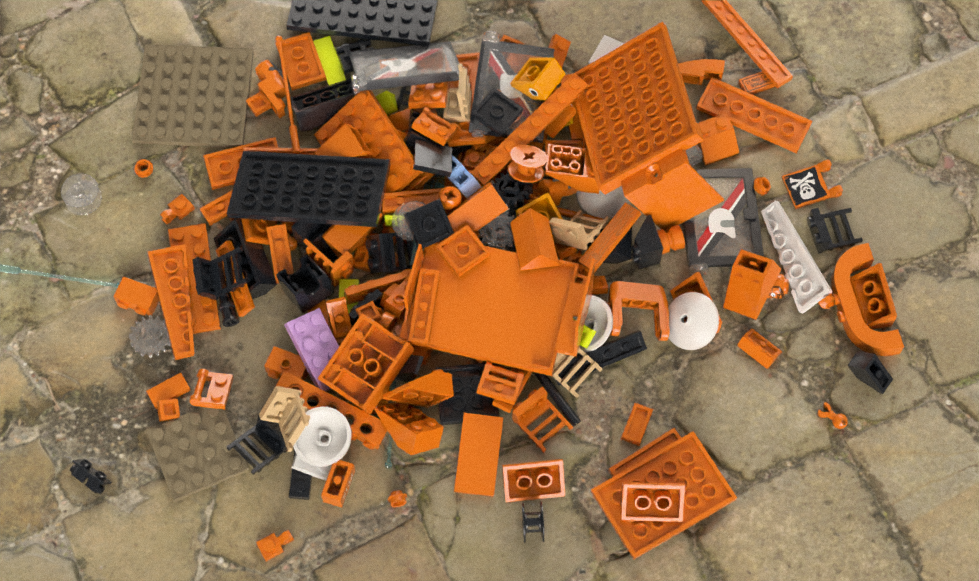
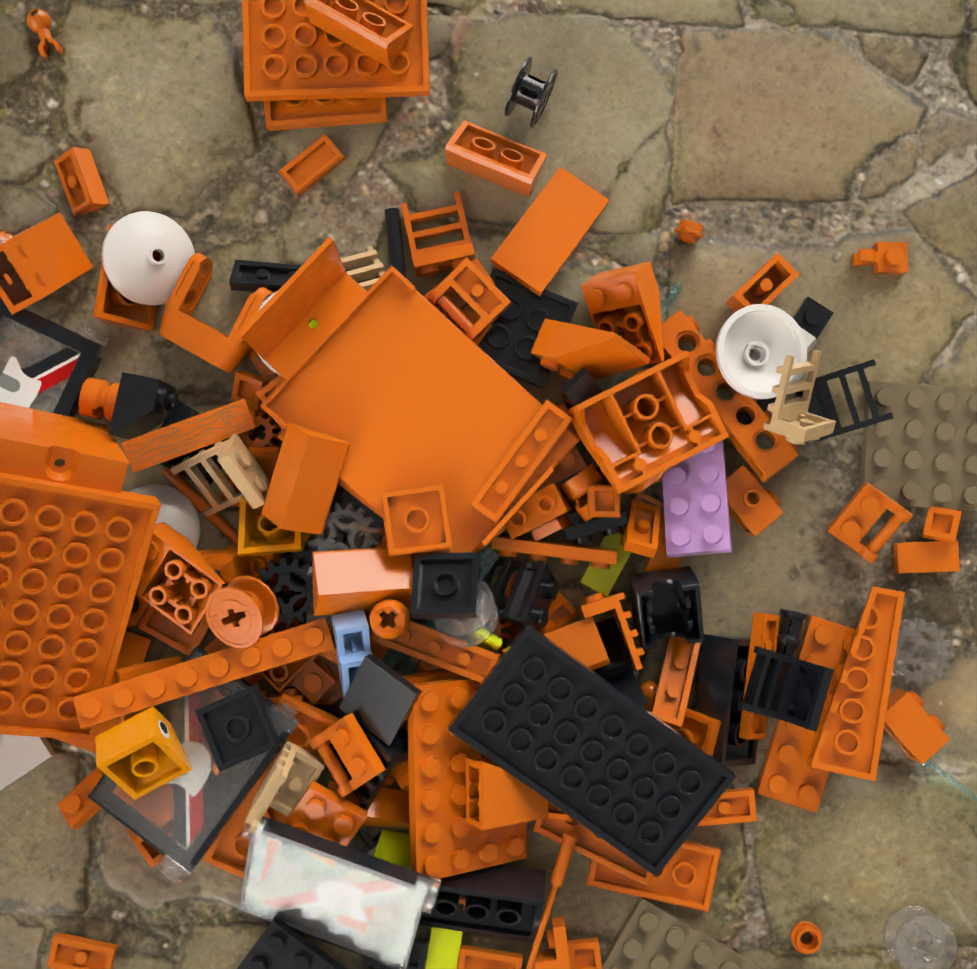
camera: 155 degrees left, 20 degrees up
(177, 208) = (783, 842): orange plate -> none

